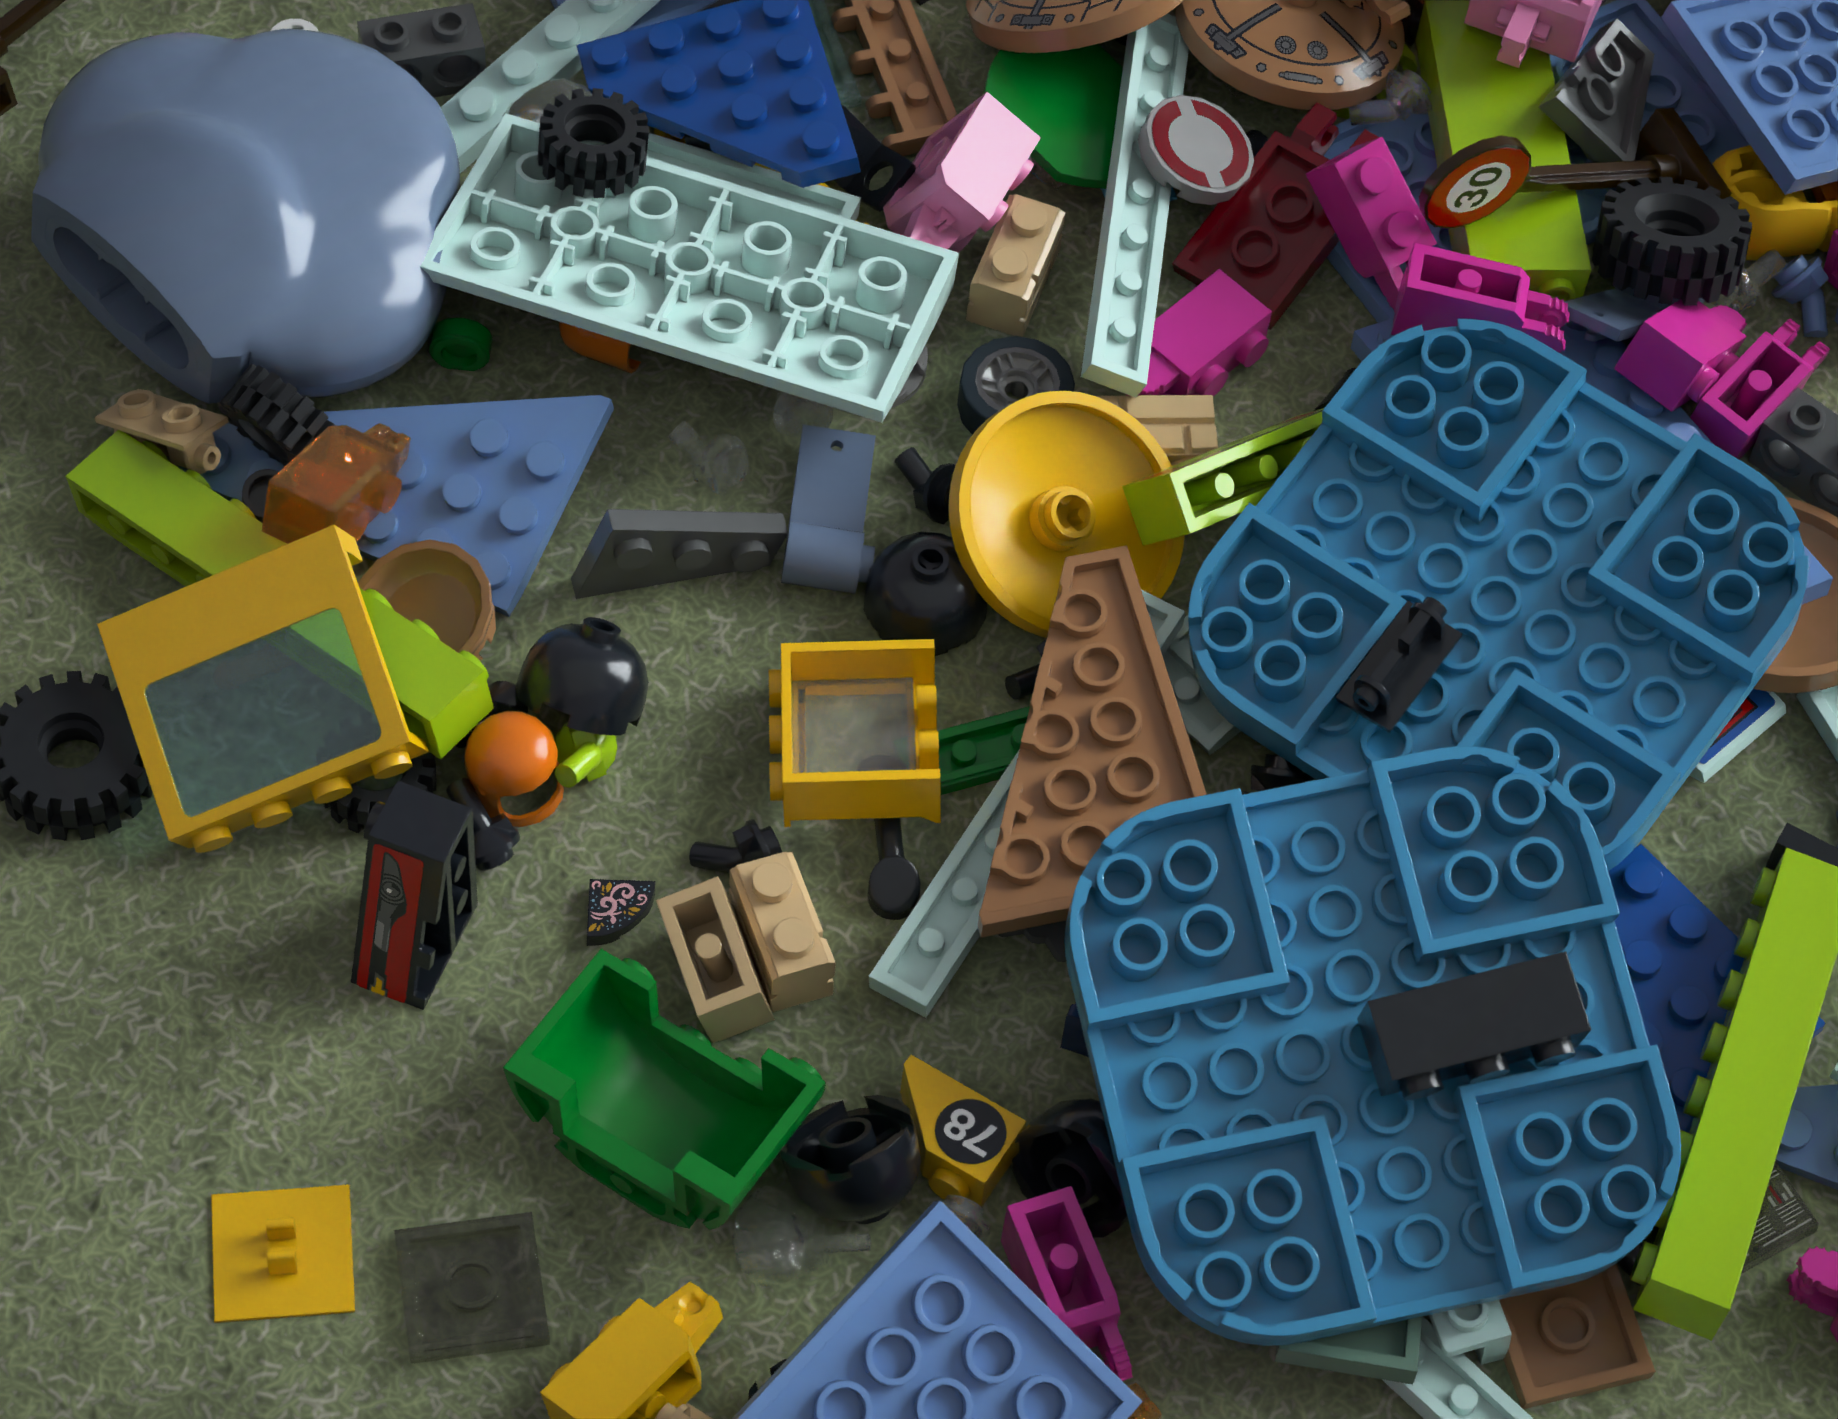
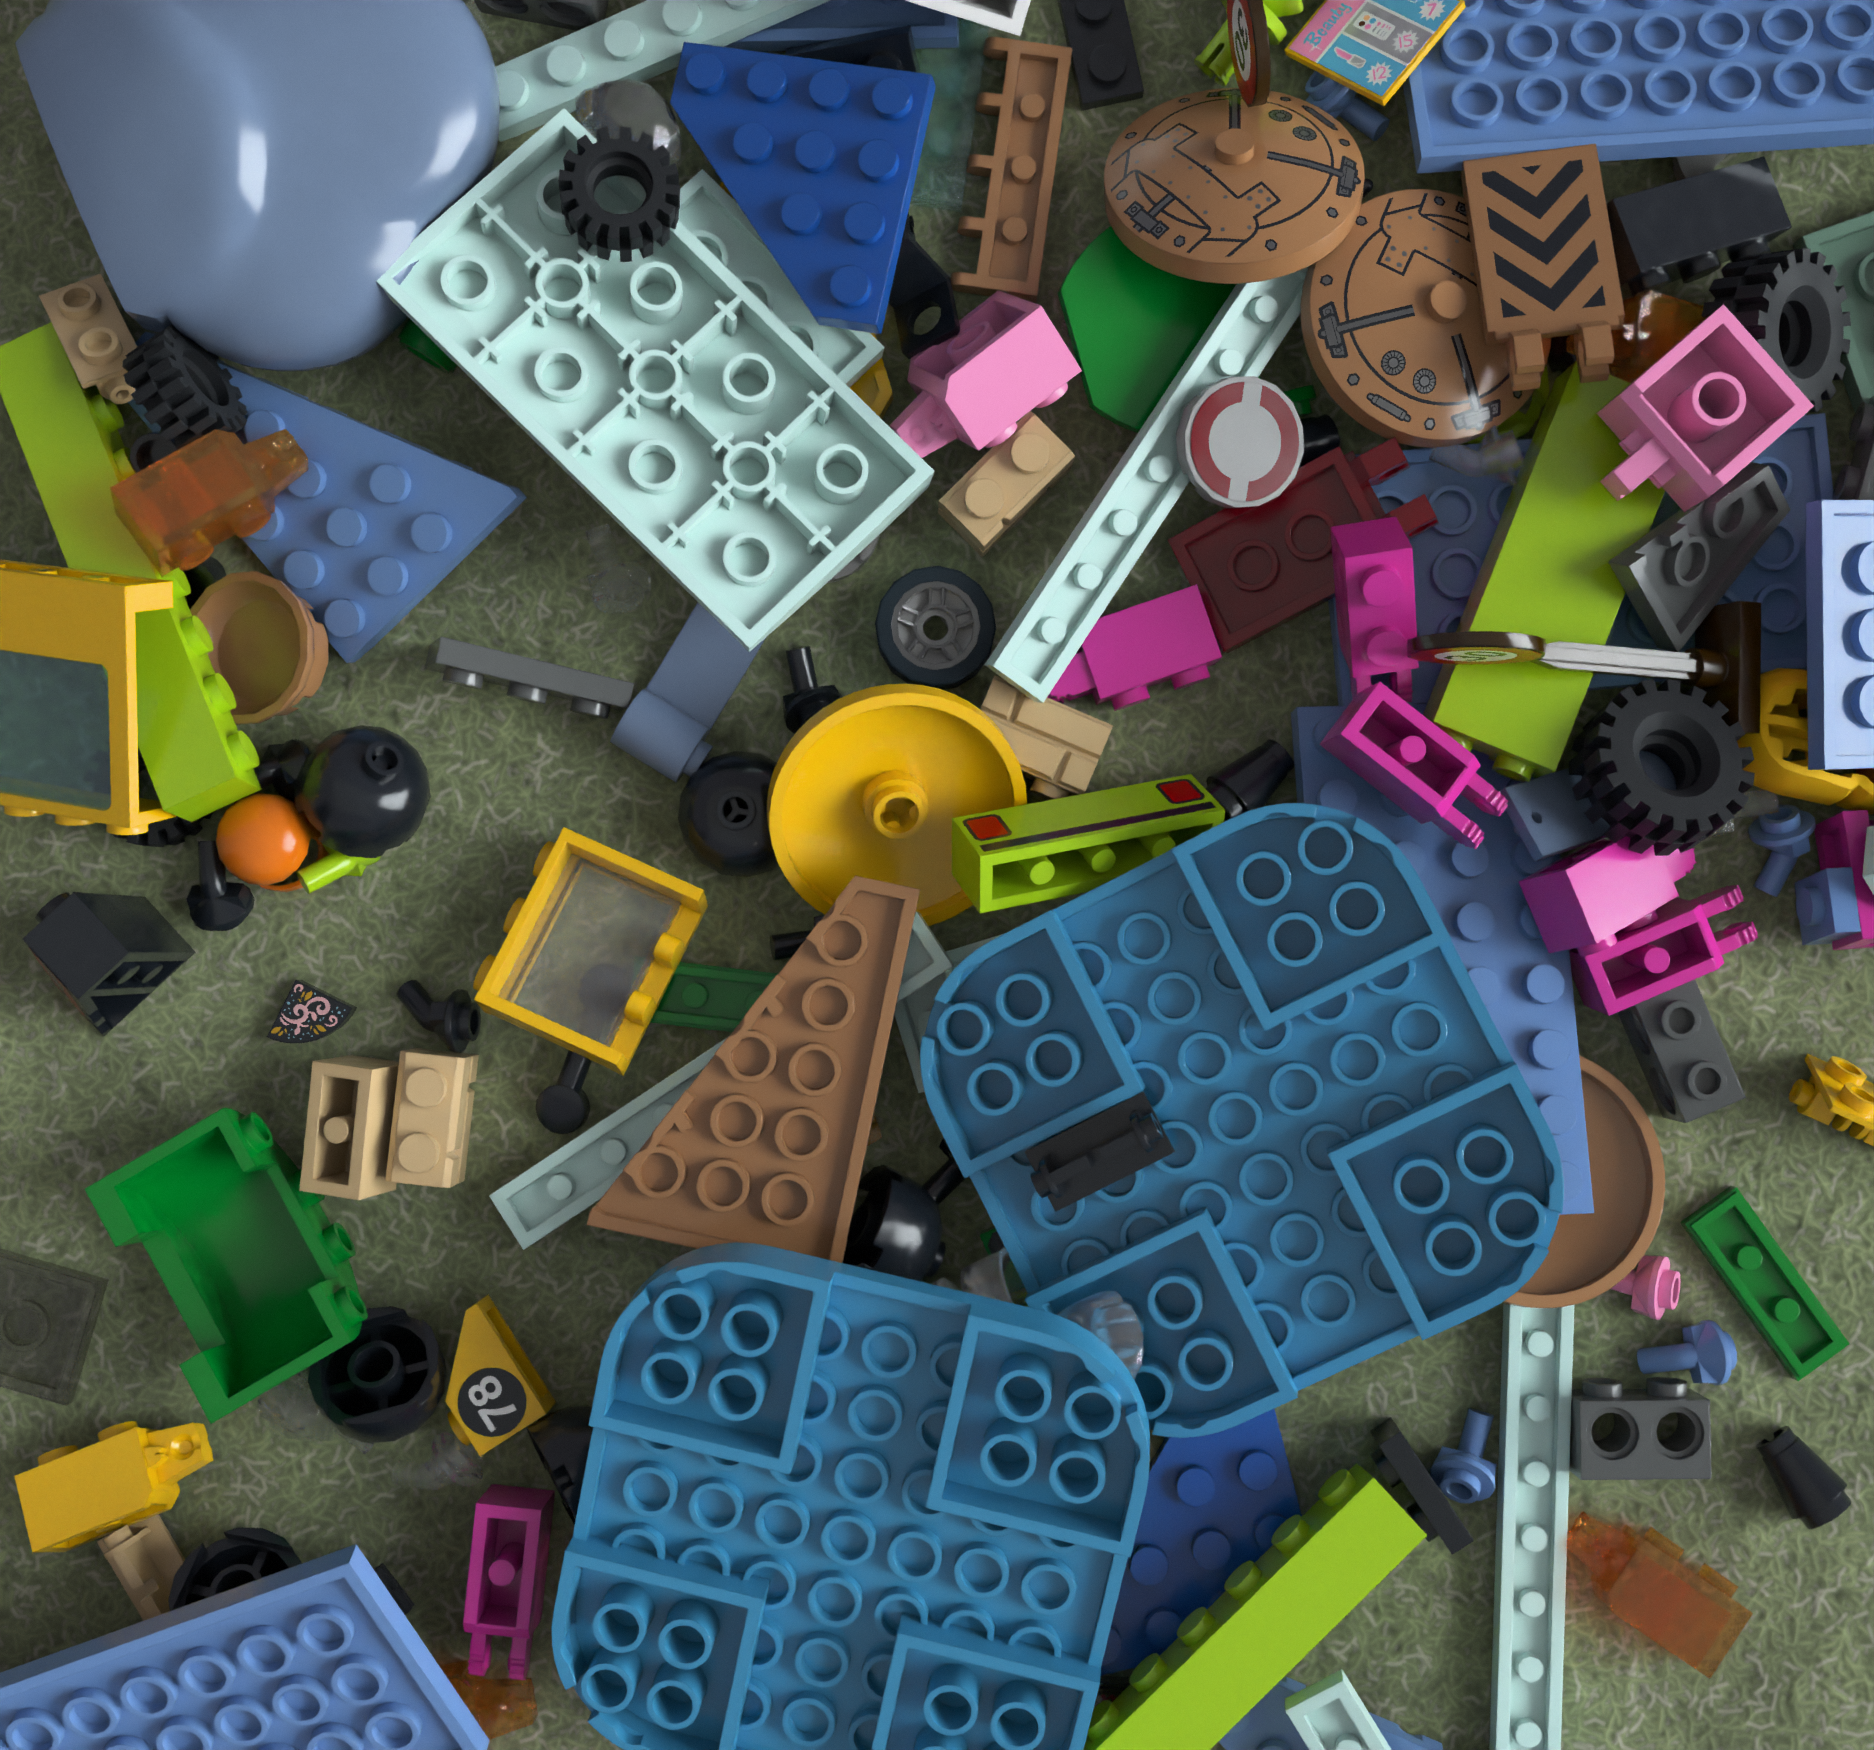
camera: 30 degrees right, 30 degrees up
(1474, 1026) = (933, 1598): black brick -> none

